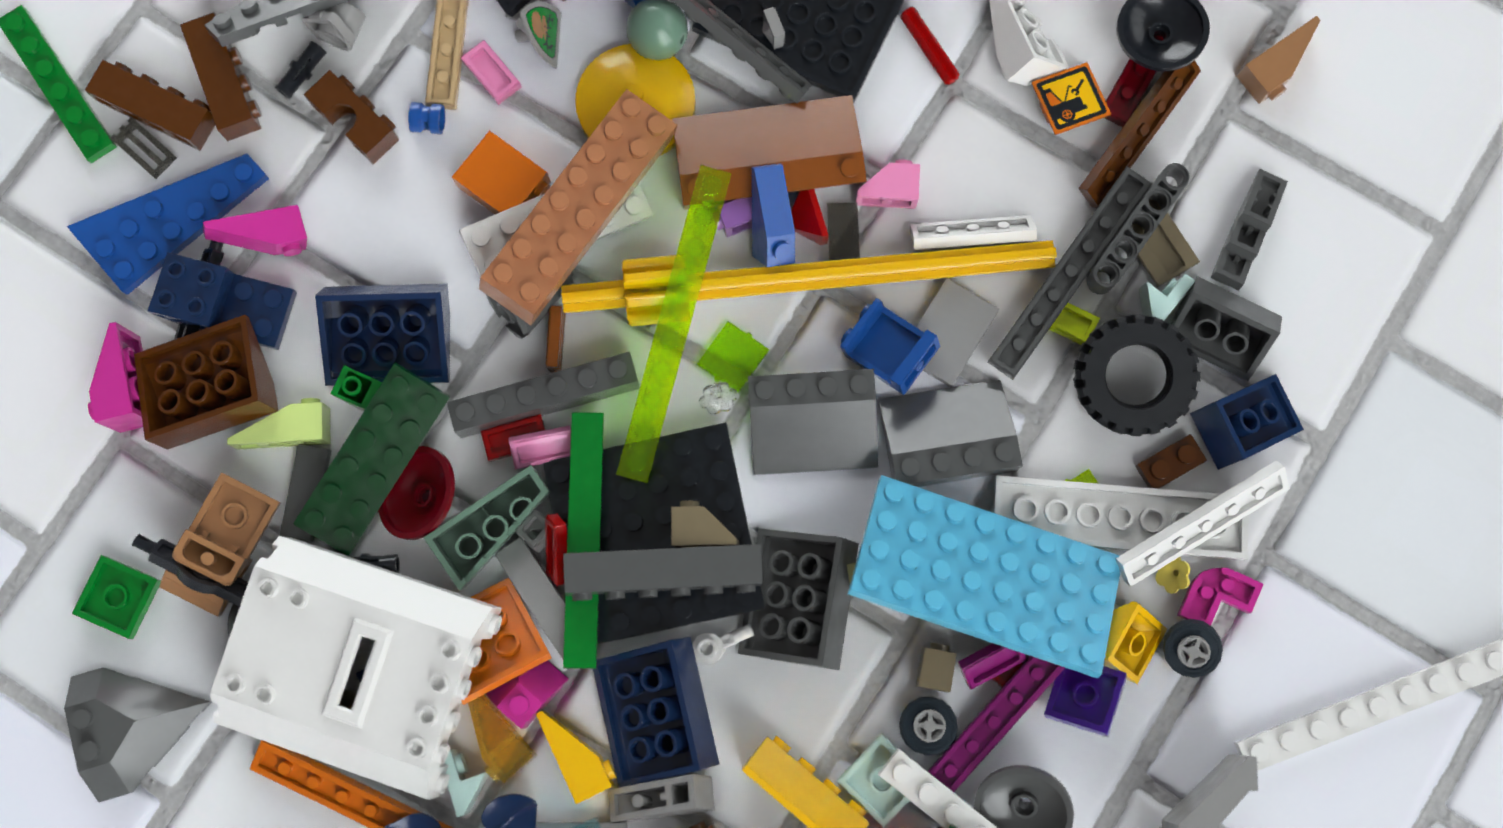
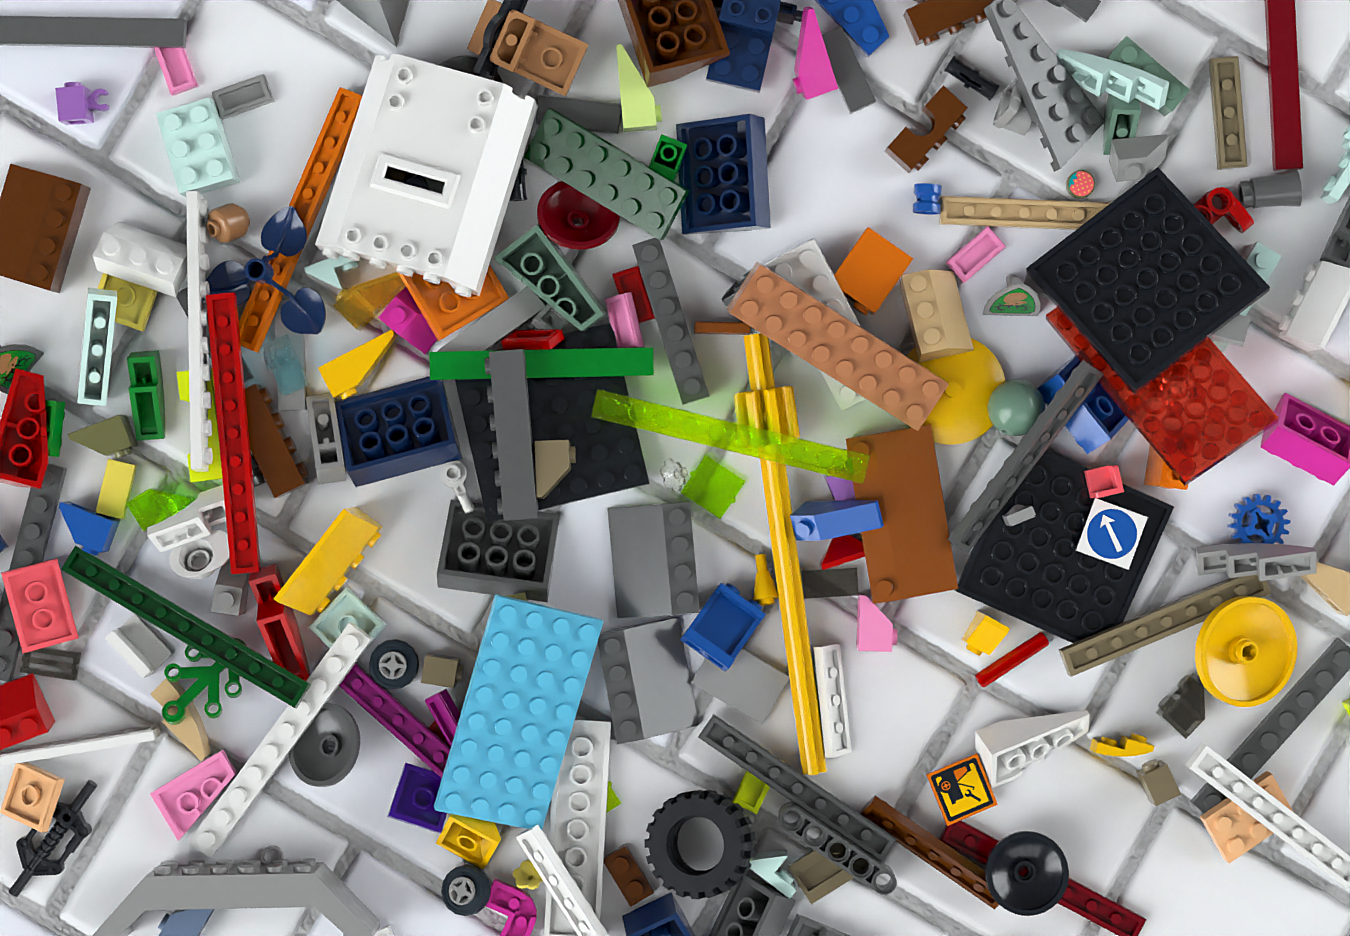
camera: 85 degrees right, 10 degrees up
(301, 191) = (847, 71): none -> dark grey tile
(552, 113) = (935, 314): none -> tan slope
(847, 302) = (764, 588): none -> yellow cone
(901, 68) = (984, 634): none -> yellow slope

